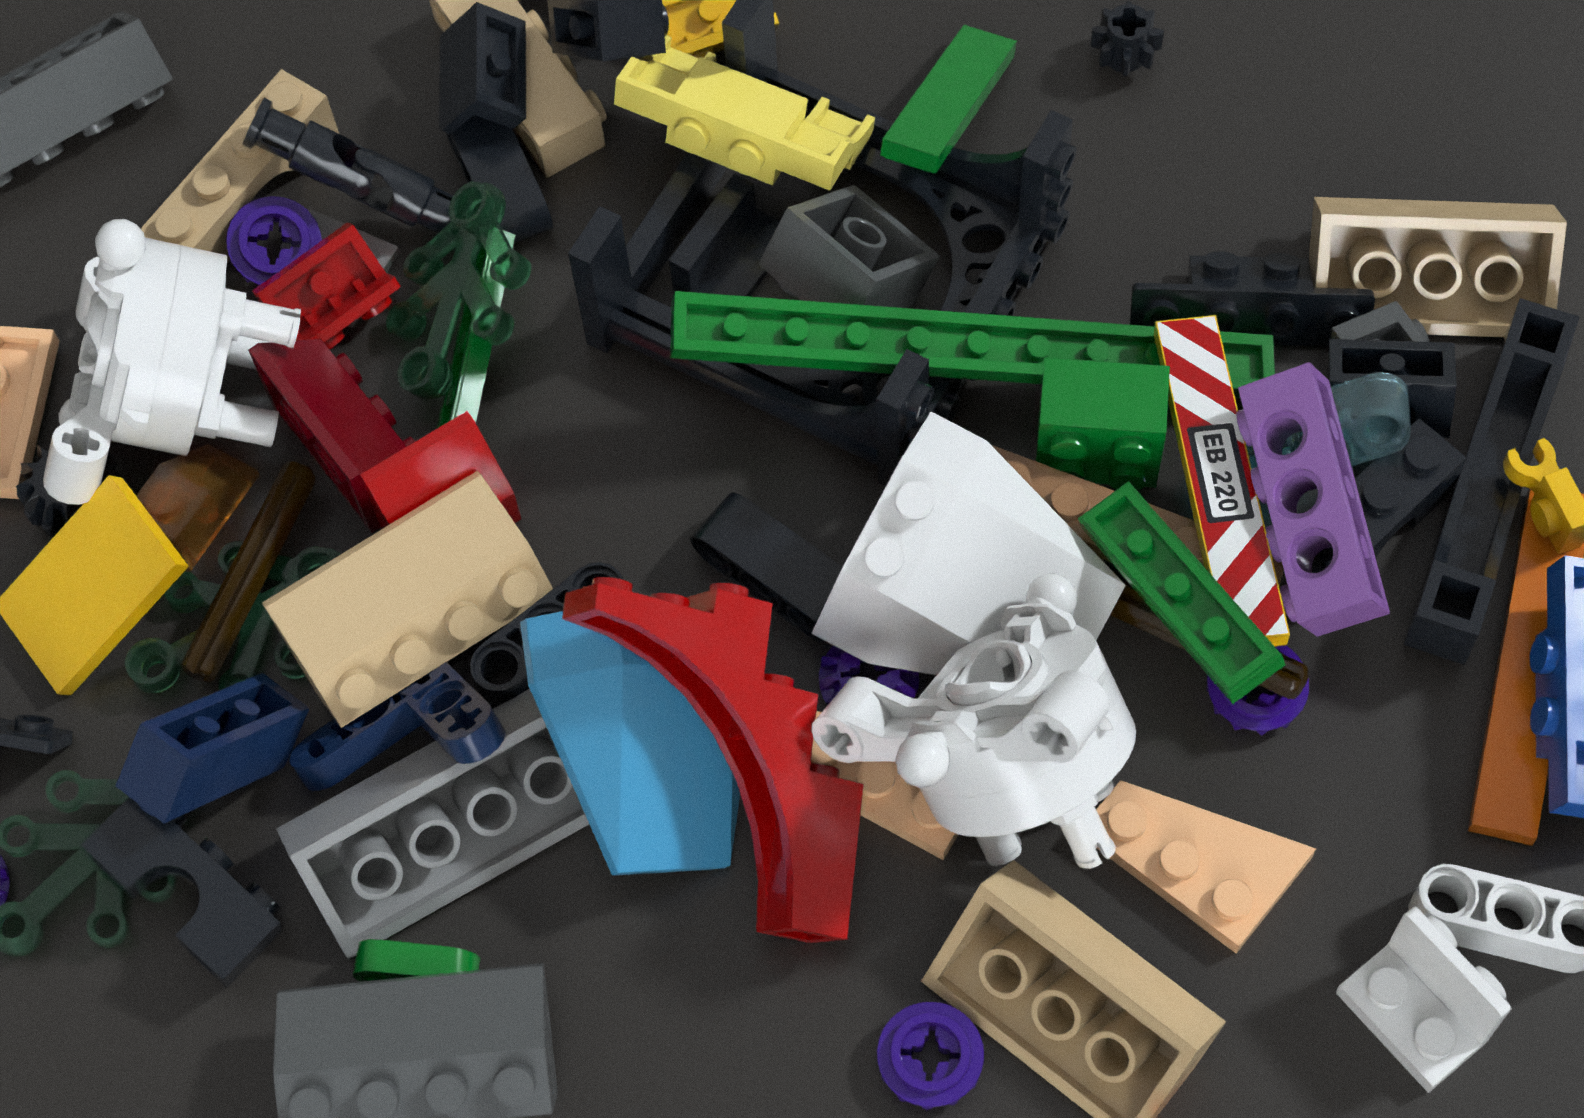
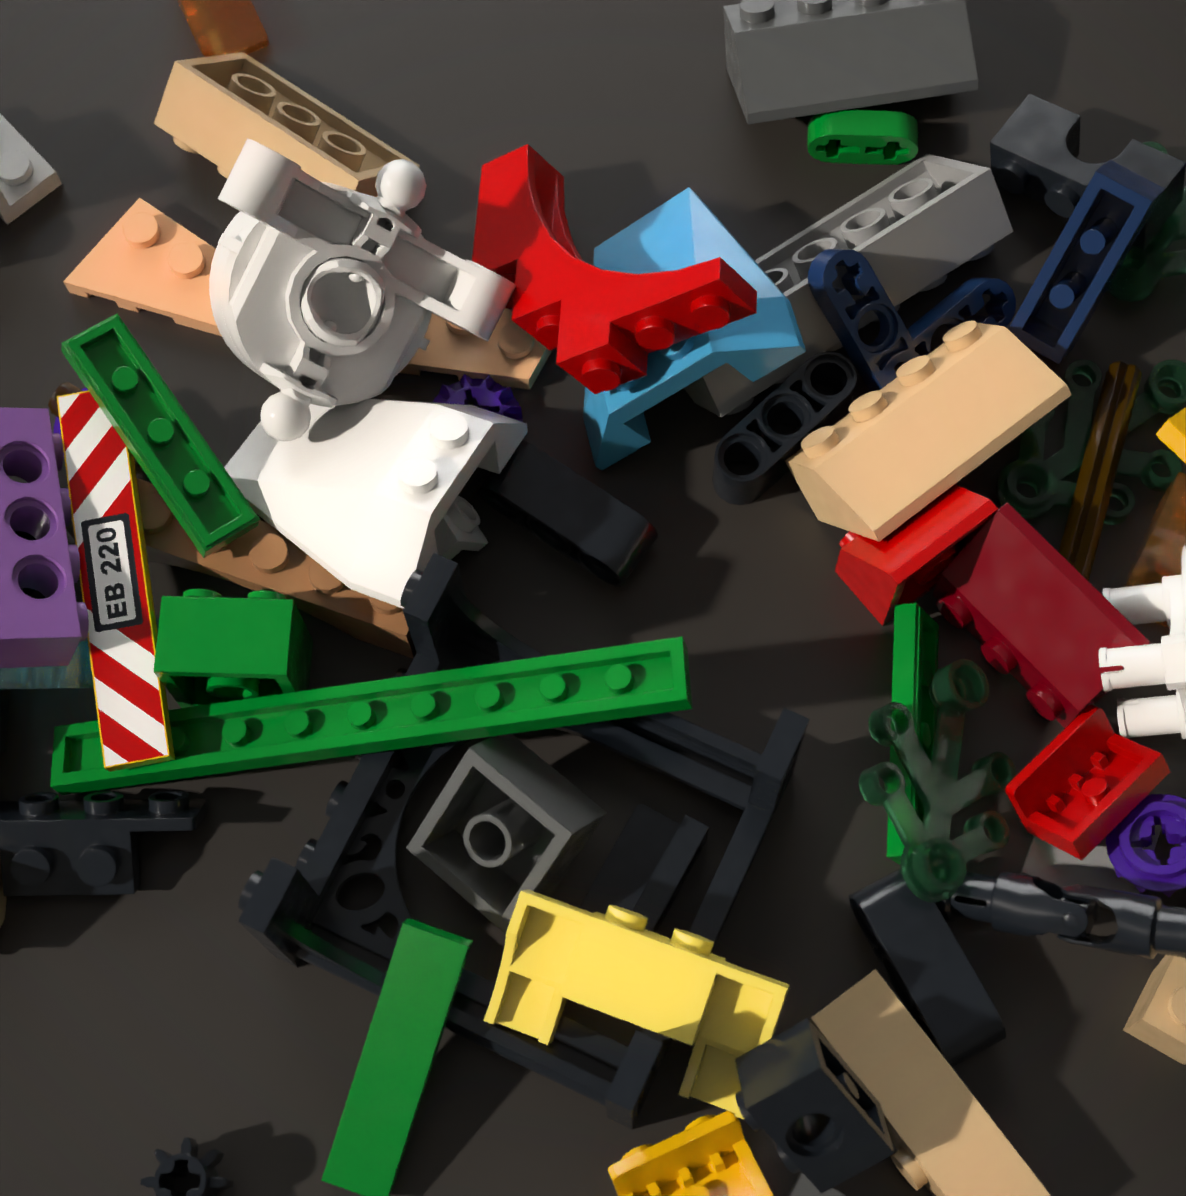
camera: 175 degrees right, 5 degrees up
(483, 69) = (958, 1055): black panel -> none
(955, 1037) = (389, 91): dark purple gear -> none

